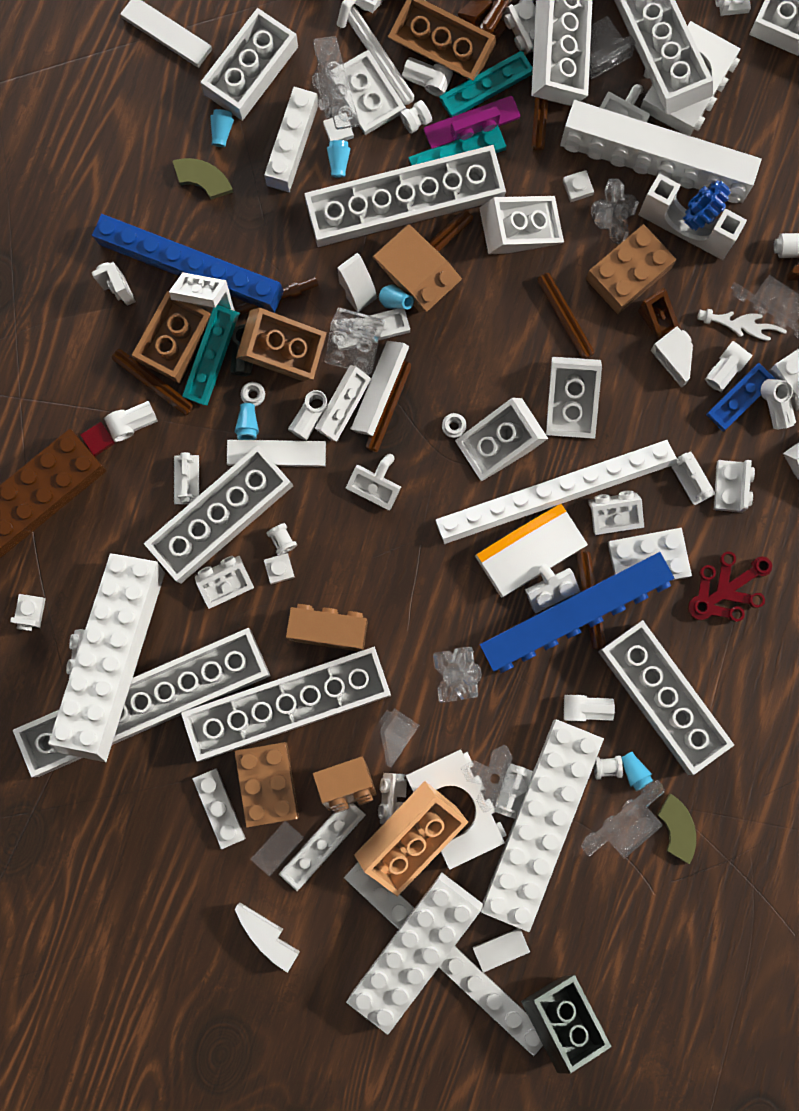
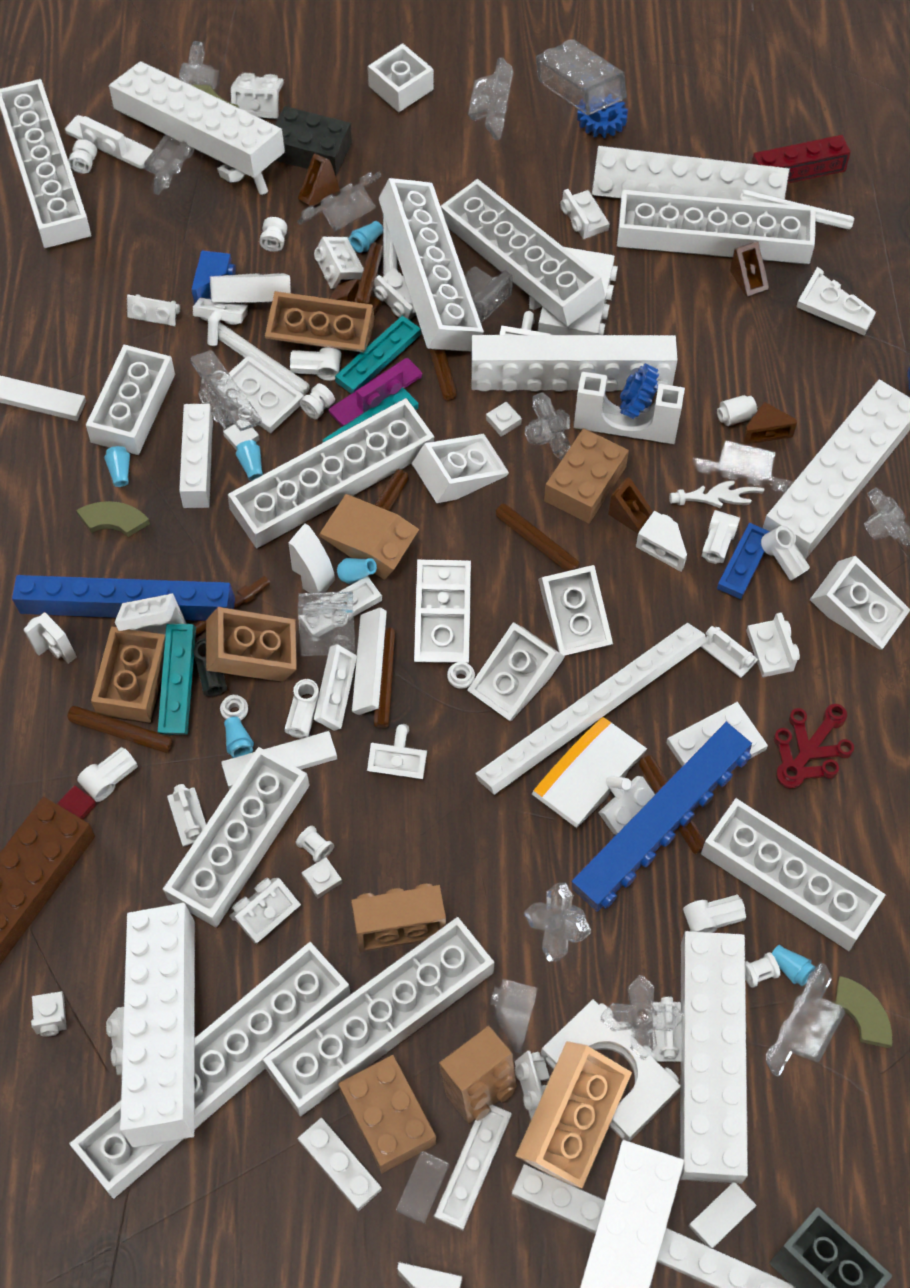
camera: 20 degrees left, 20 degrees down
(458, 360) = (442, 611): none -> white slope
(616, 512) = (665, 707): white bracket -> none

